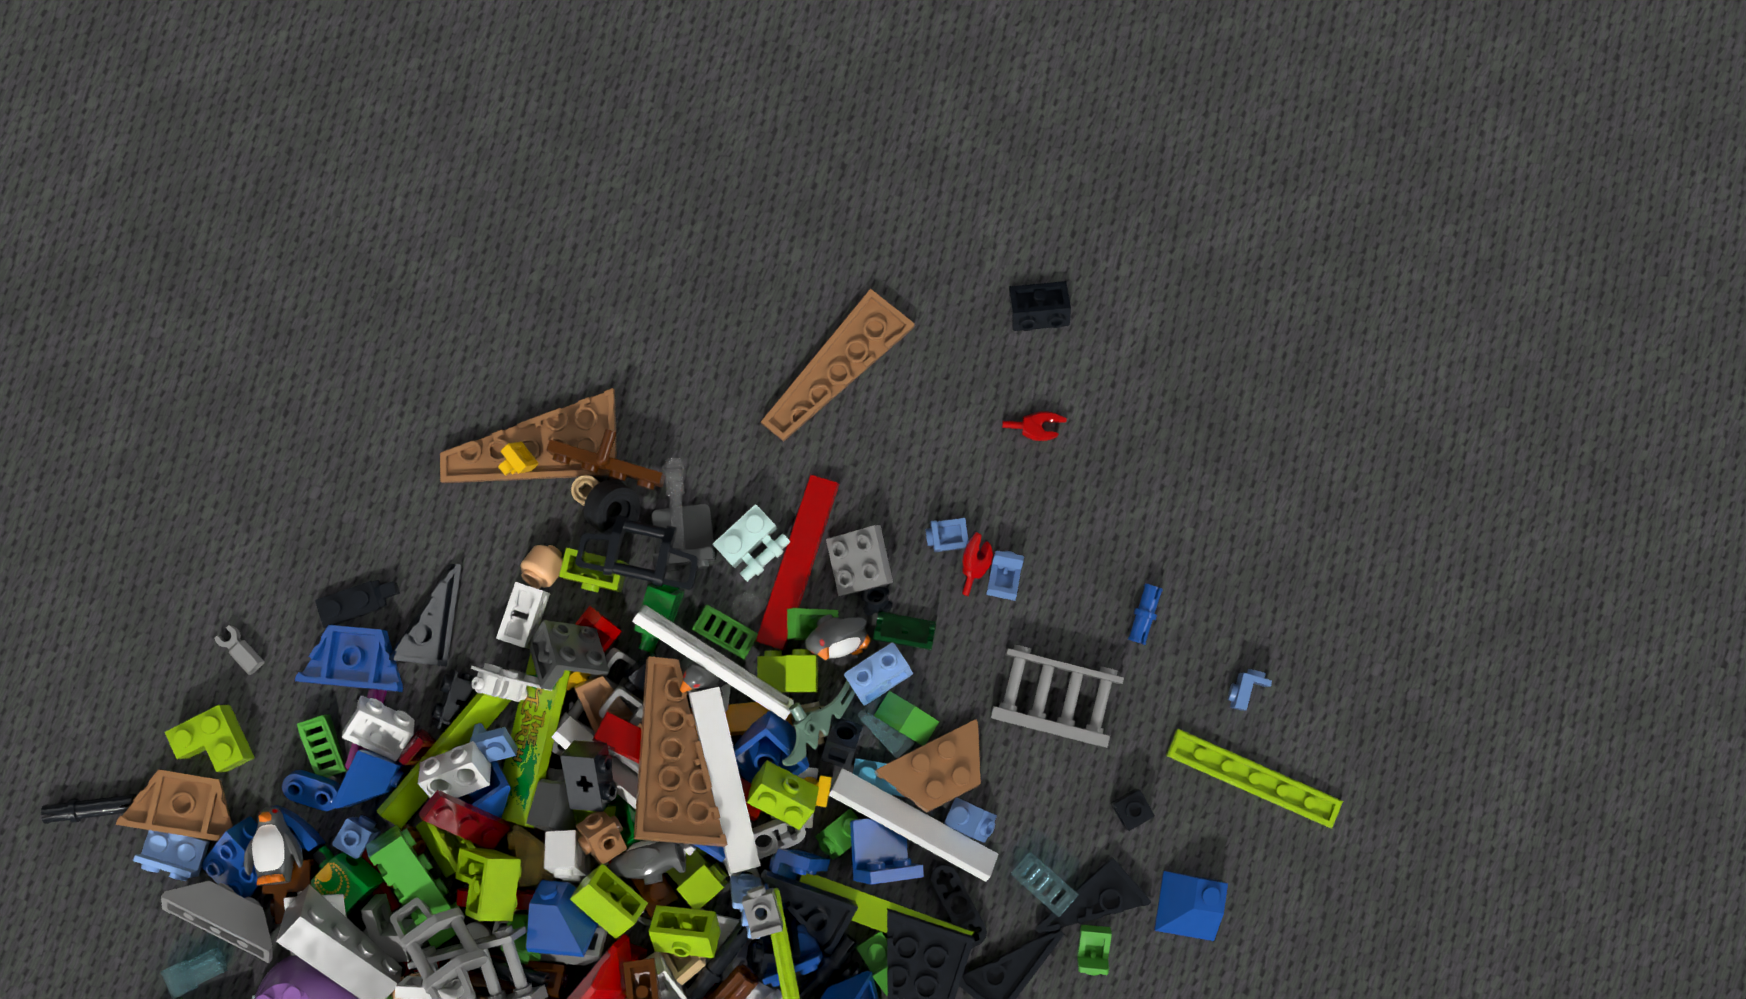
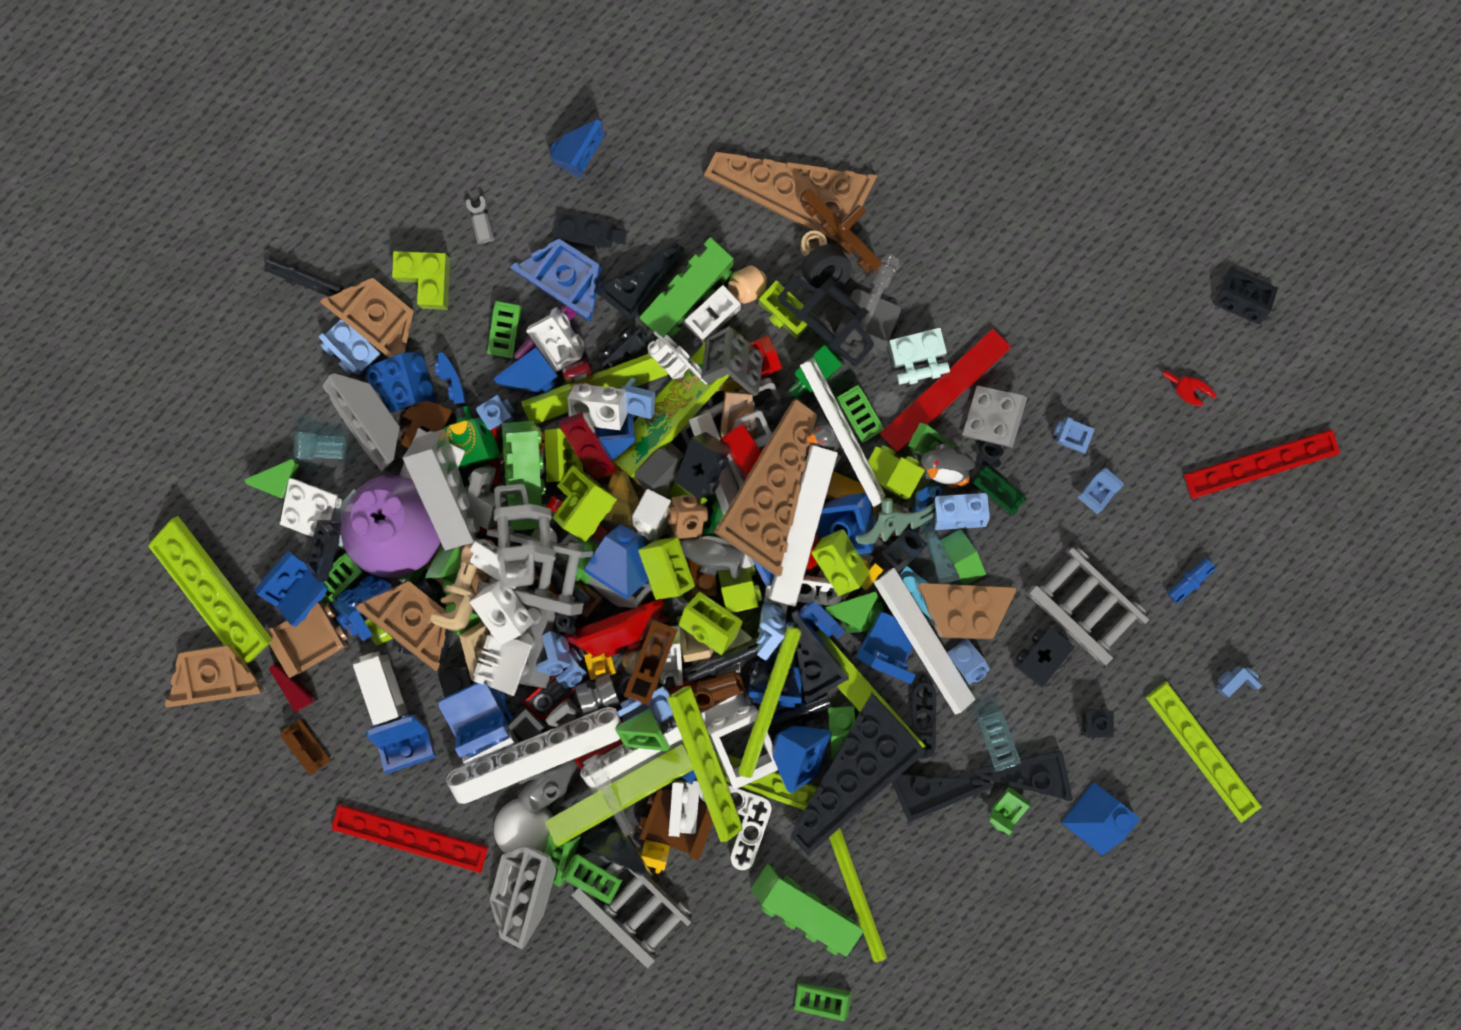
camera: 30 degrees right, 5 degrees up
(272, 849) = (430, 387): animal -> none
(299, 524) = (577, 147): none -> blue slope
(311, 788) = (480, 356): blue plate -> none
(485, 605) = (688, 290): none -> bright green wedge
(517, 459) = (774, 190): yellow tile -> none
(762, 898) = (781, 652): light grey brick -> none
(824, 836) = (853, 611): none -> bright green slope
(835, 678) = (924, 496): none -> blue arm
(852, 349) = (1077, 249): medium nougat wing -> none
(975, 565) = (1082, 469): red hand -> none
(1047, 789) = (1042, 670): none -> black brick
(1148, 460) = (1261, 464): none -> red tile

